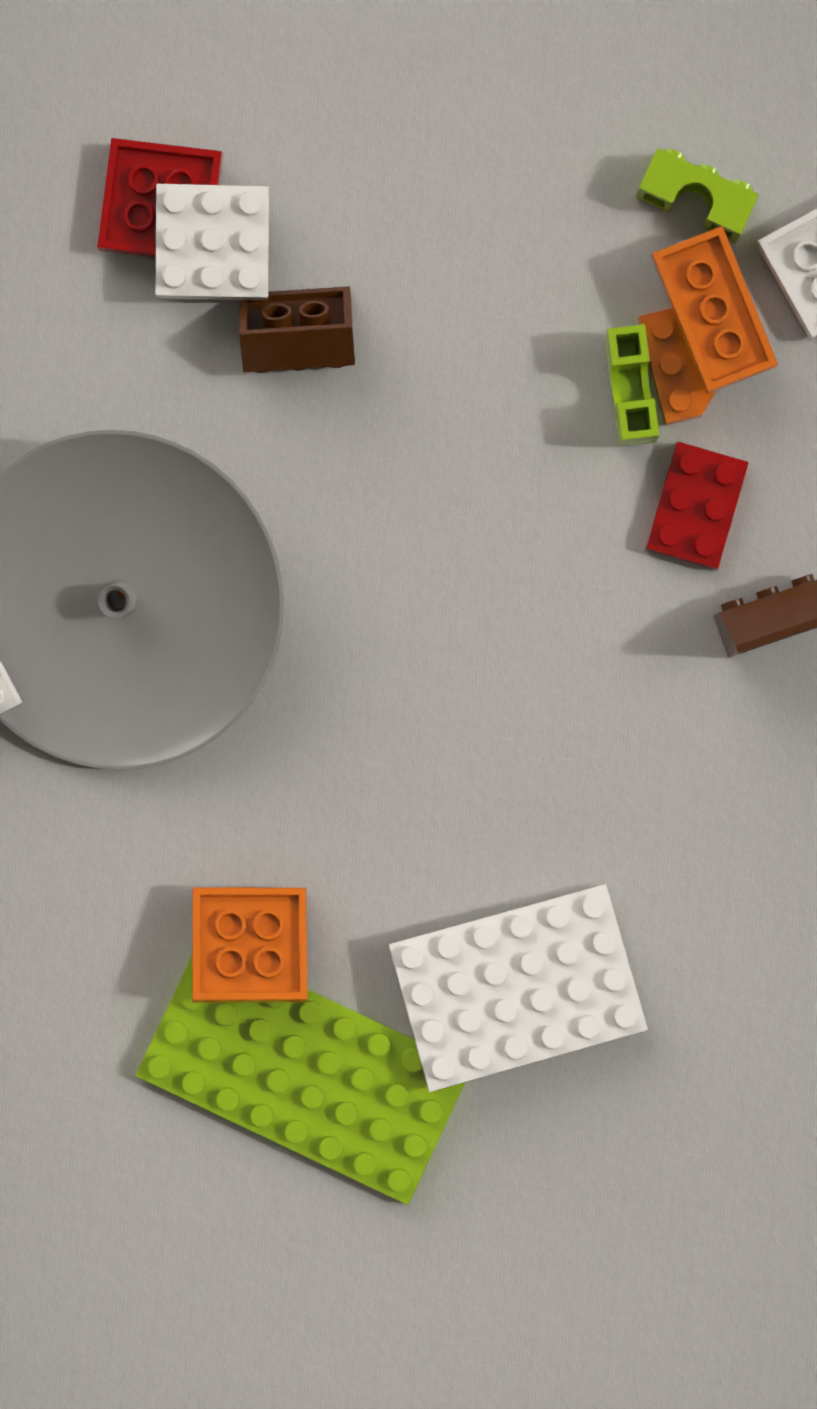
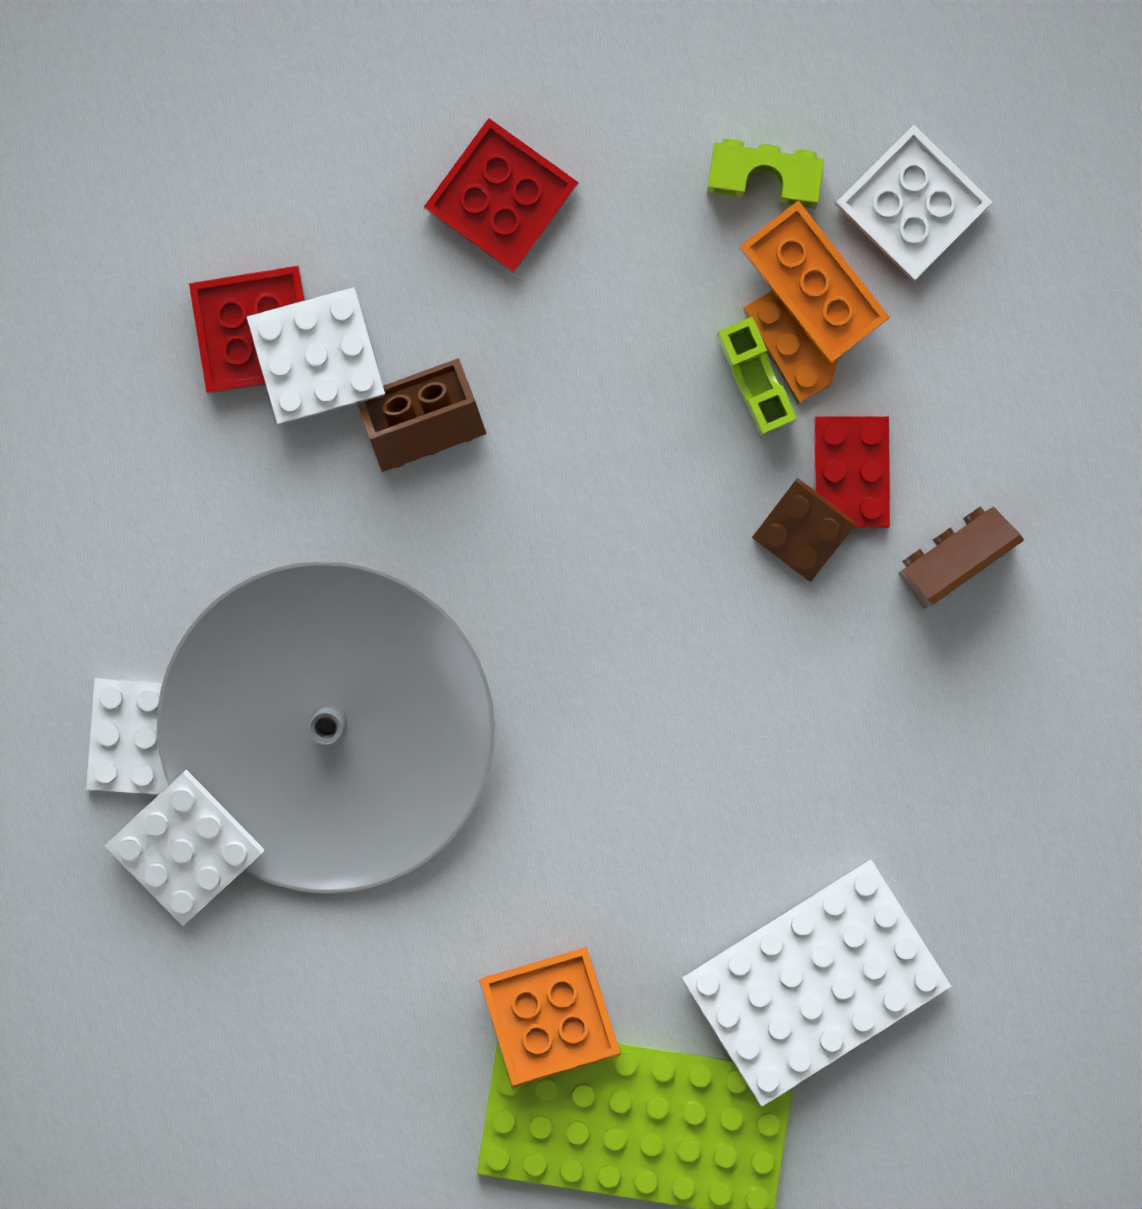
camera: 20 degrees left, 0 degrees up
(436, 141) = (501, 195): none -> red plate
(634, 546) = (804, 530): none -> reddish brown plate

